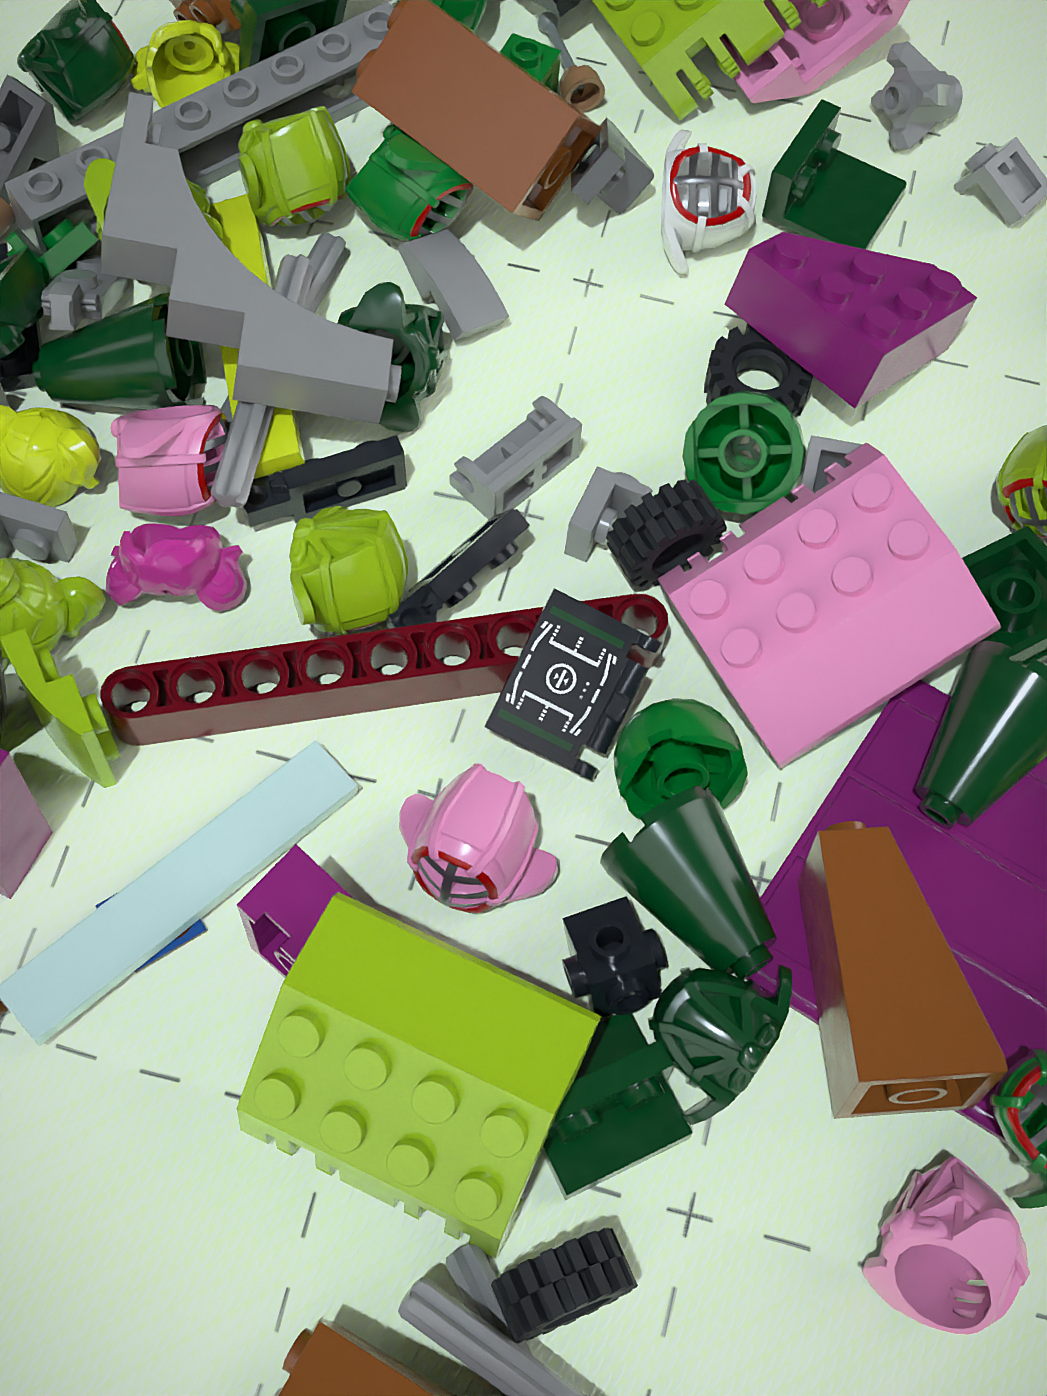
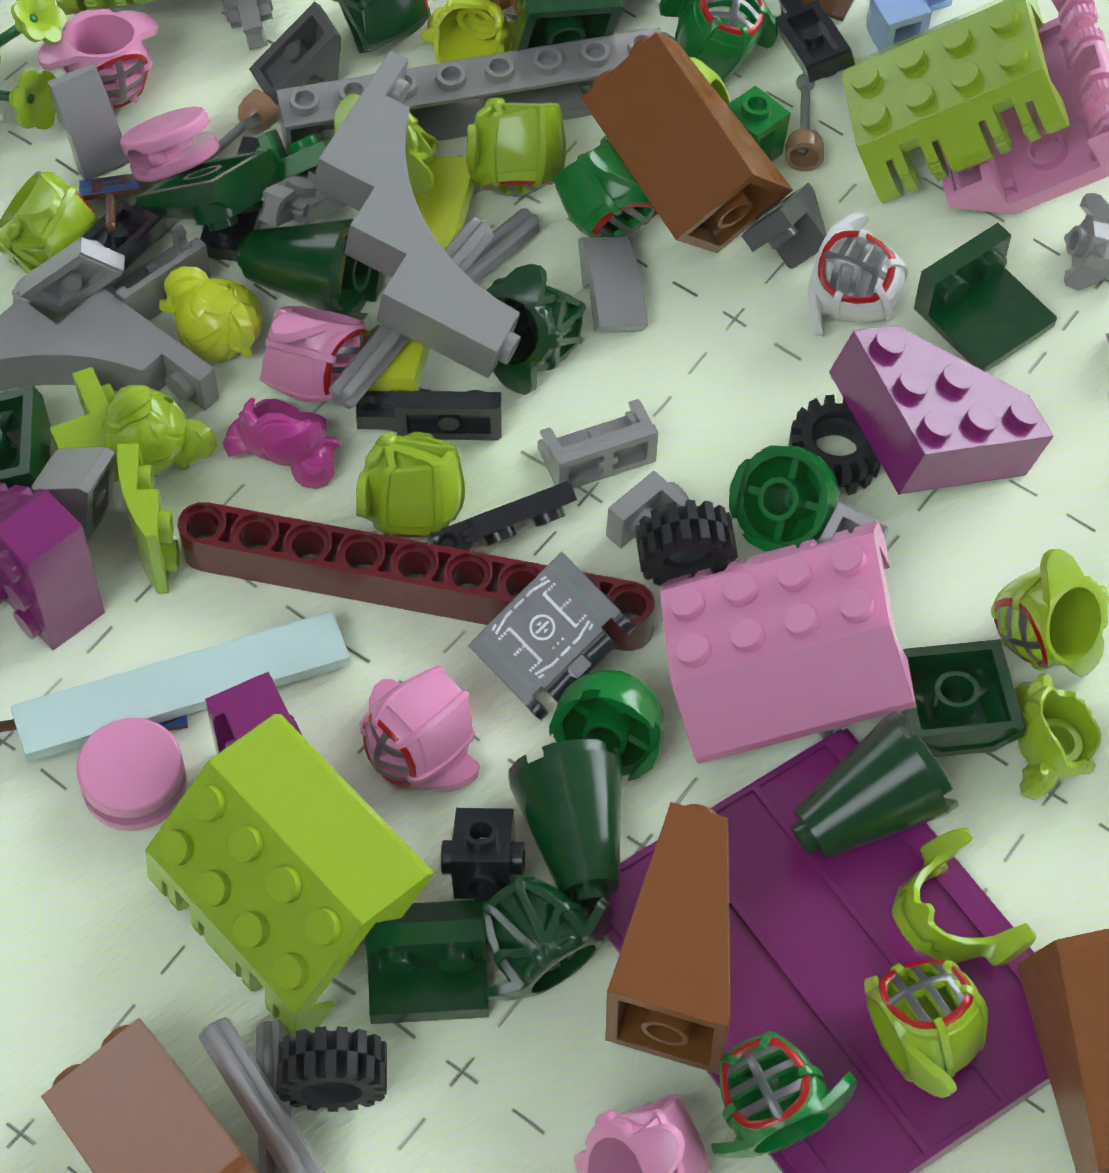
camera: 25 degrees right, 5 degrees down
(169, 1014) = (131, 774): none -> bright pink head

